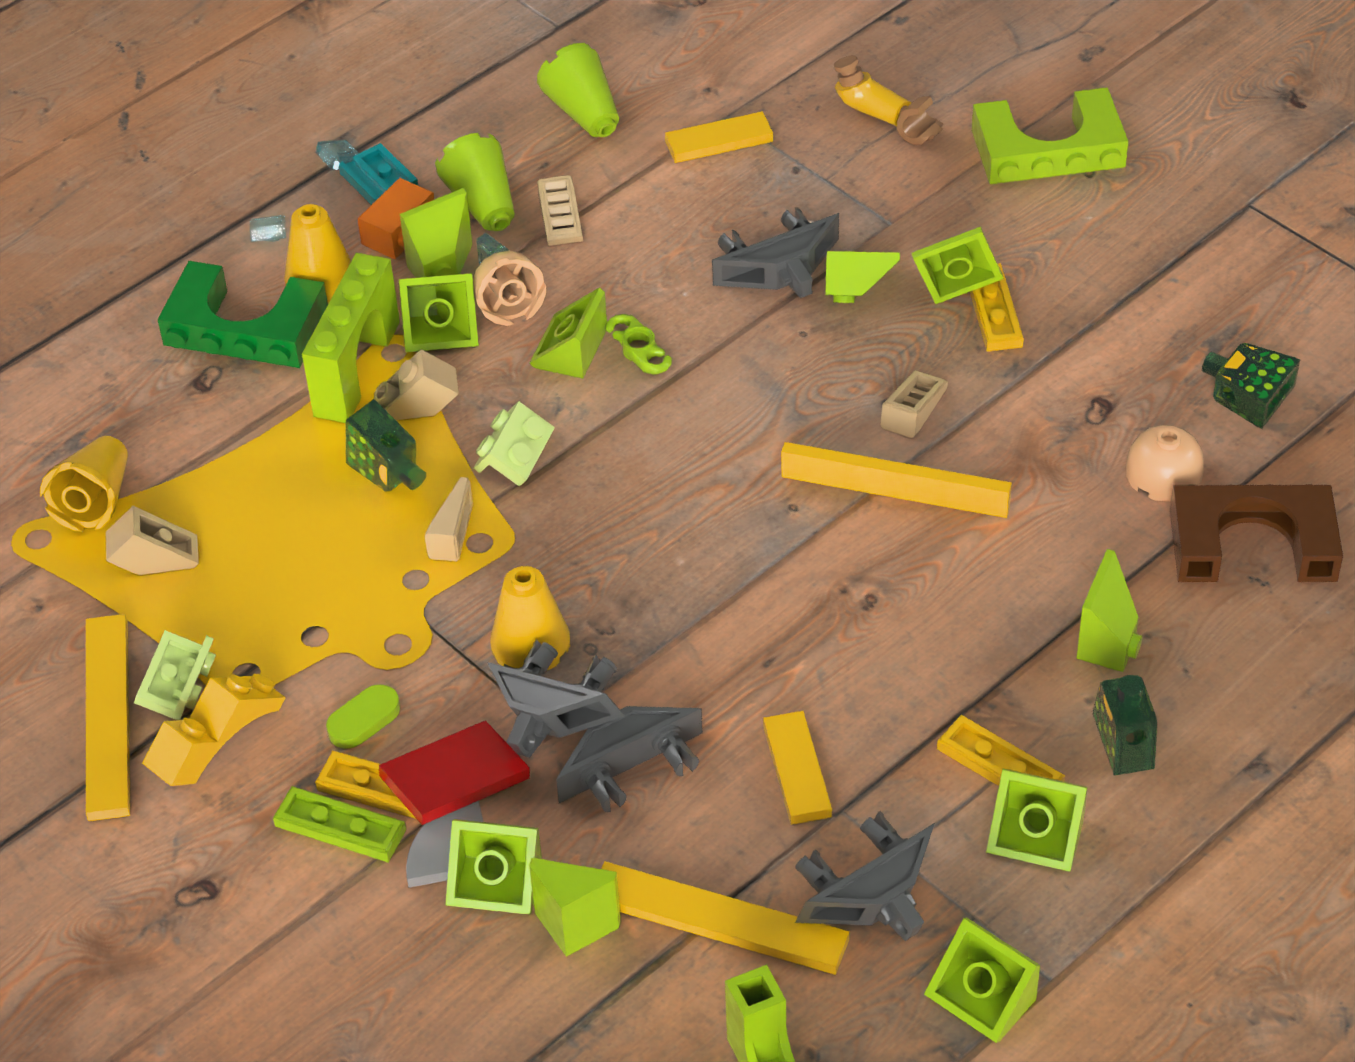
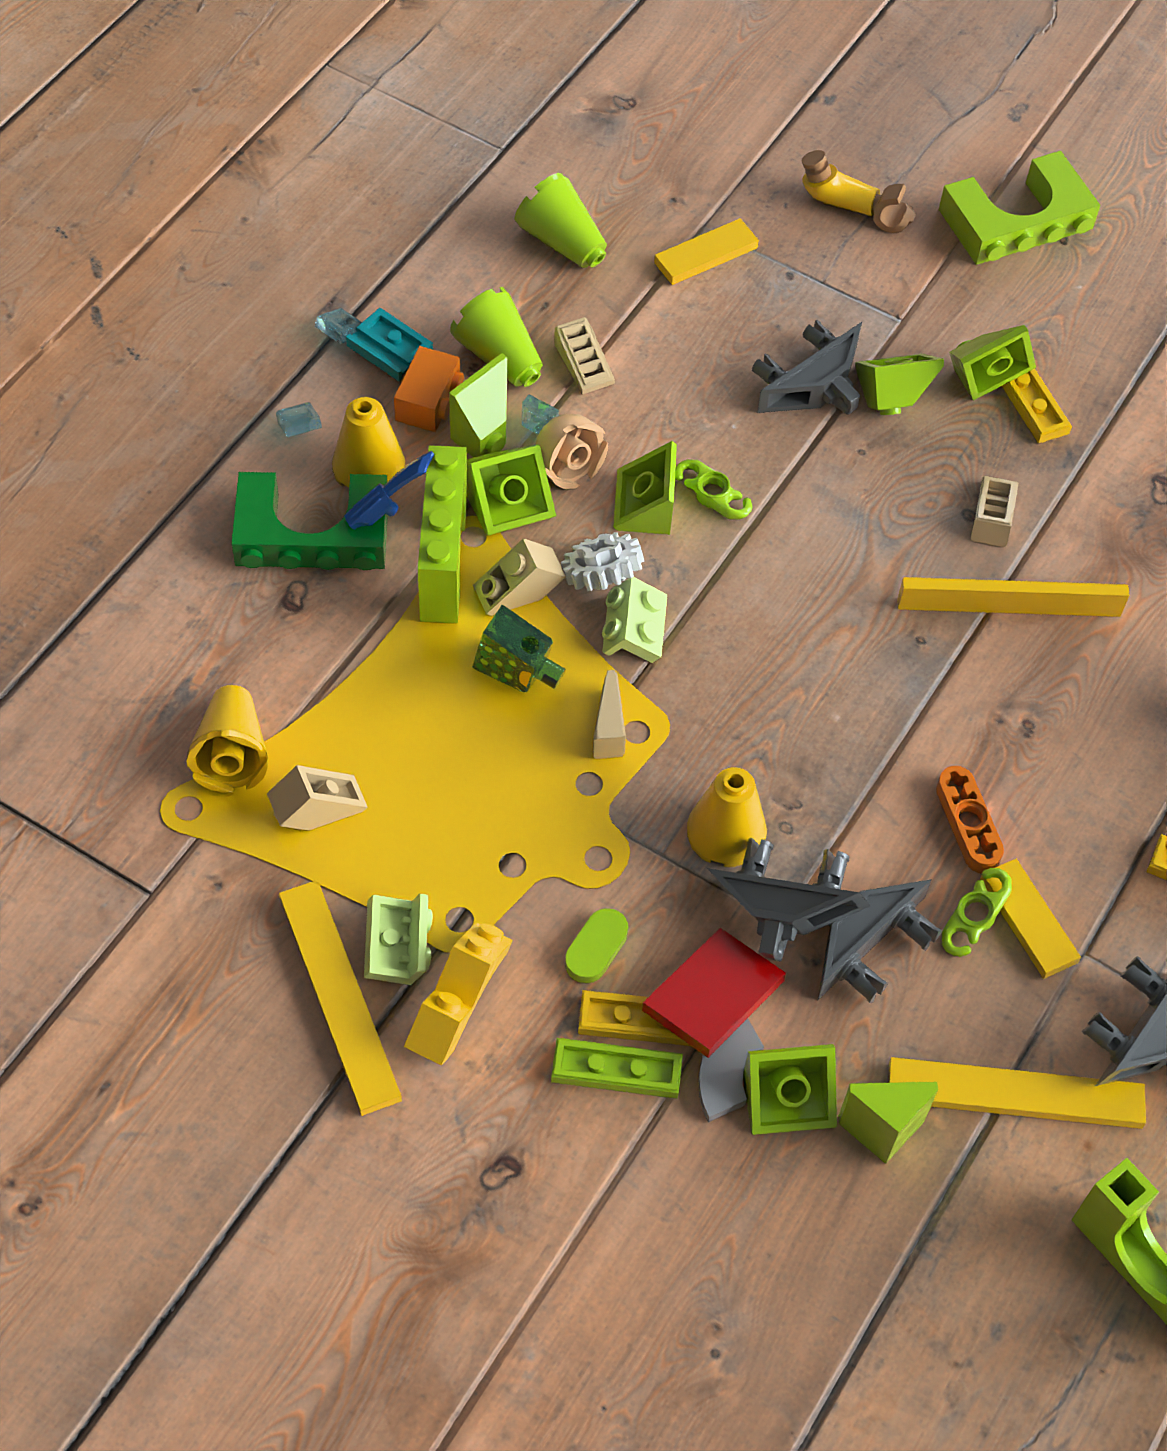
camera: 20 degrees left, 10 degrees up
(299, 297) = (378, 500): none -> blue piece
(499, 386) = (602, 561): none -> white gear
(724, 757) = (960, 923): none -> lime piece
(778, 656) = (971, 802): none -> orange beam

